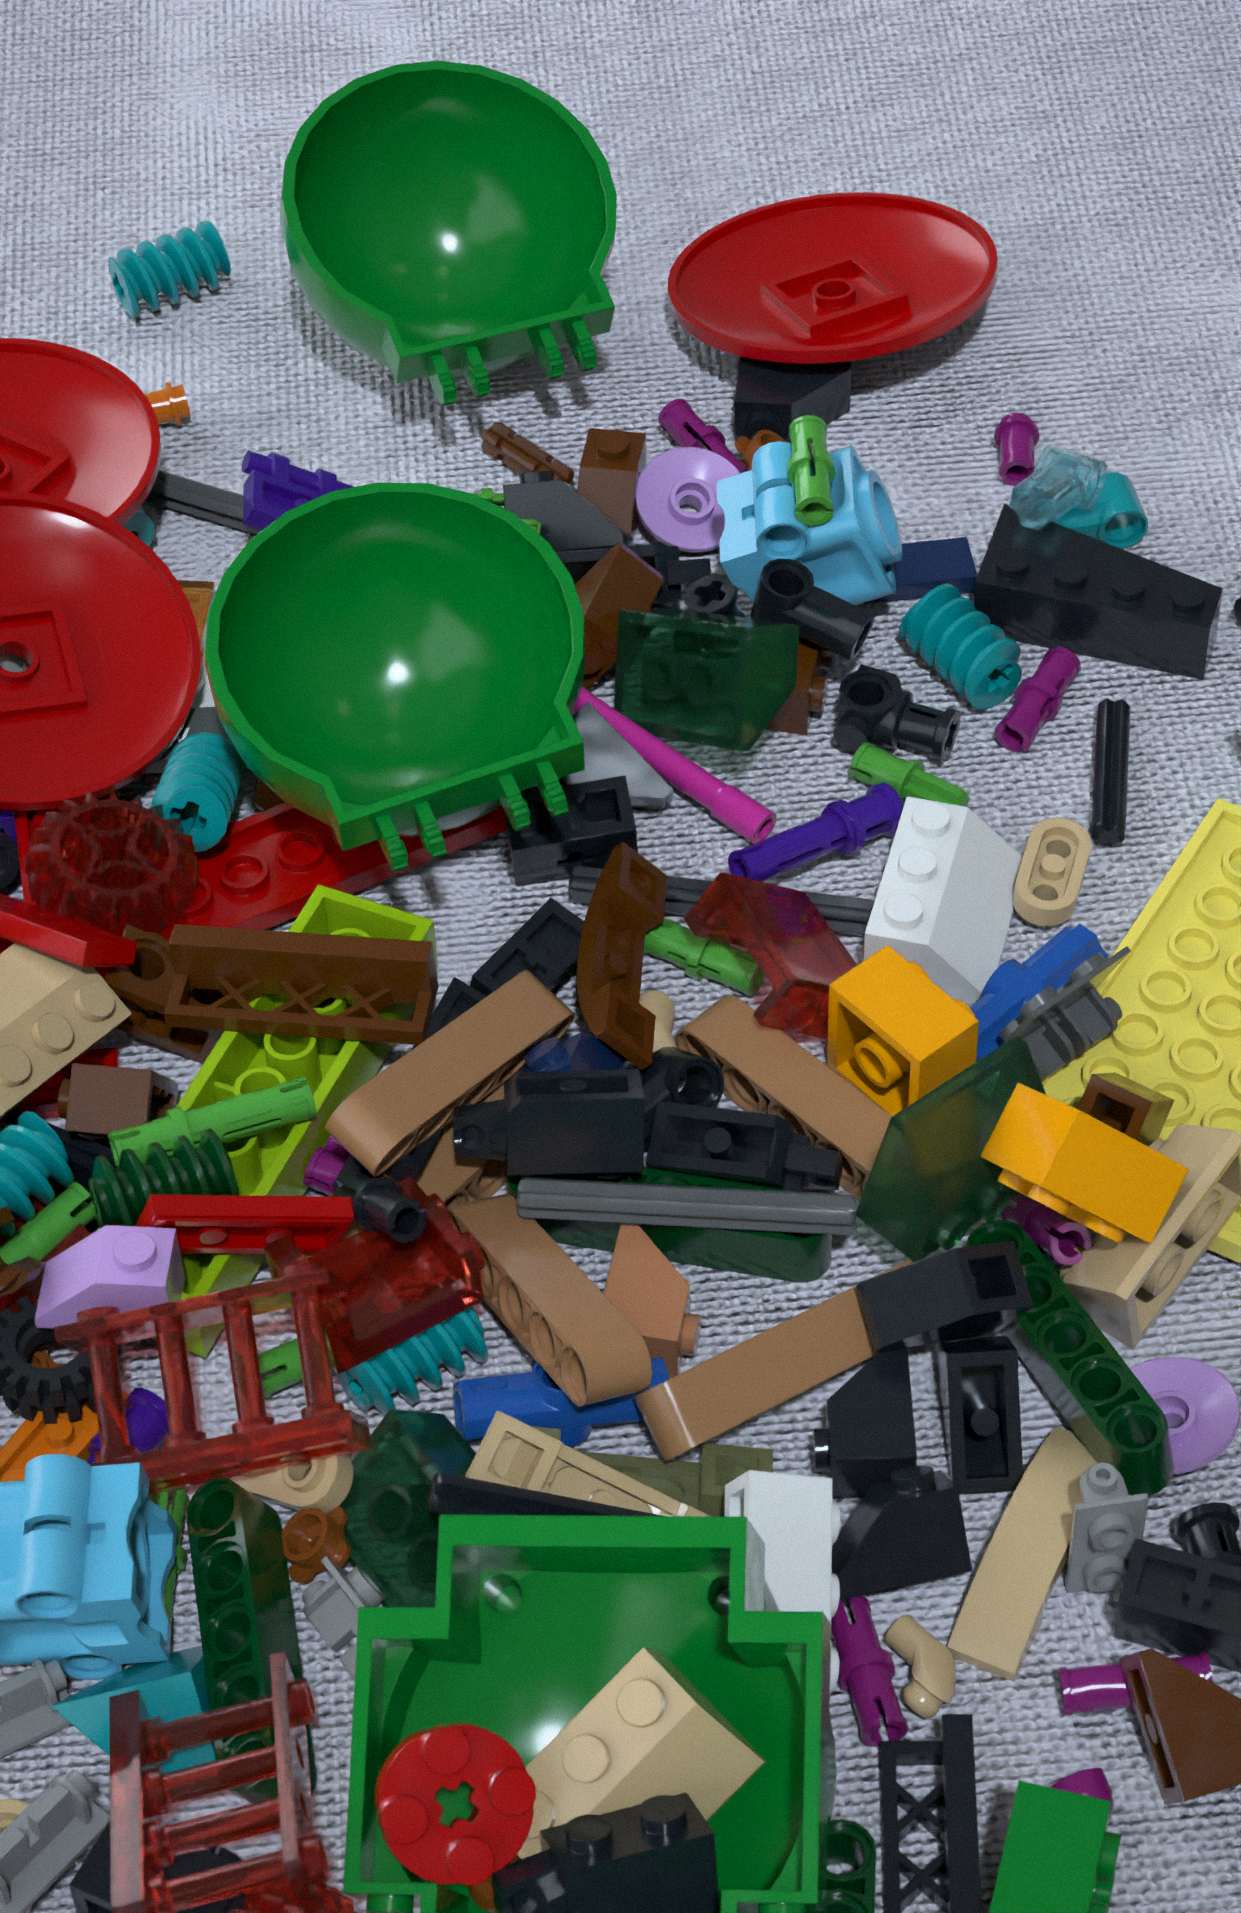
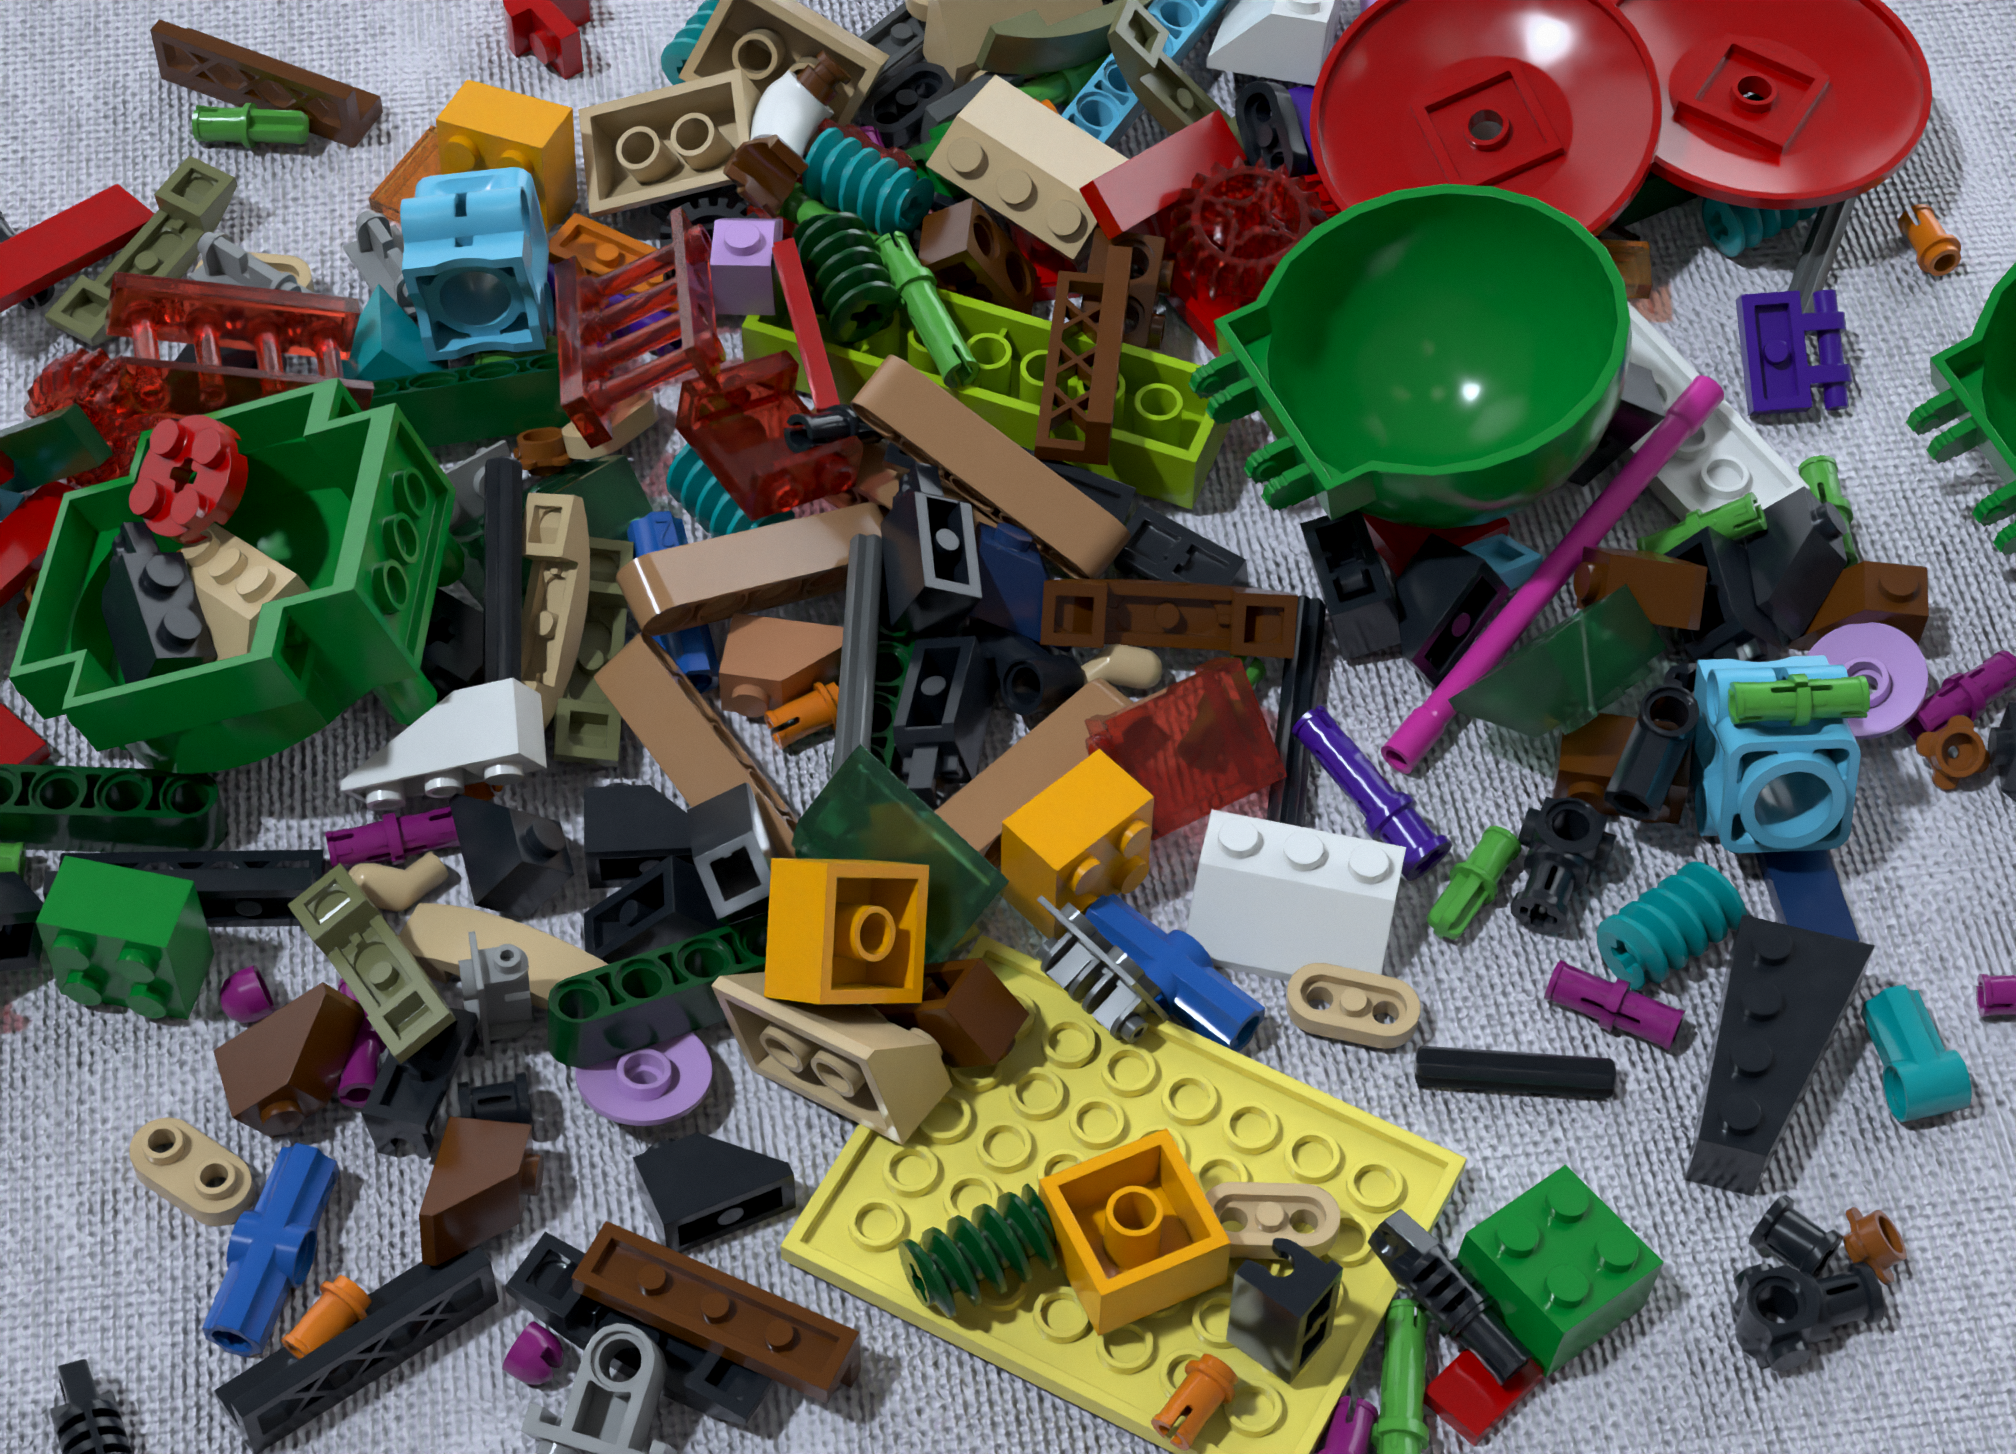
camera: 85 degrees right, 5 degrees up
(521, 453) = (1927, 536): reddish brown axle -> none
(707, 1291) = (809, 714): none -> orange pin
(1057, 485) = (1911, 995): clear light blue piece -> none
(1093, 1626) = (373, 963): none -> olive slope

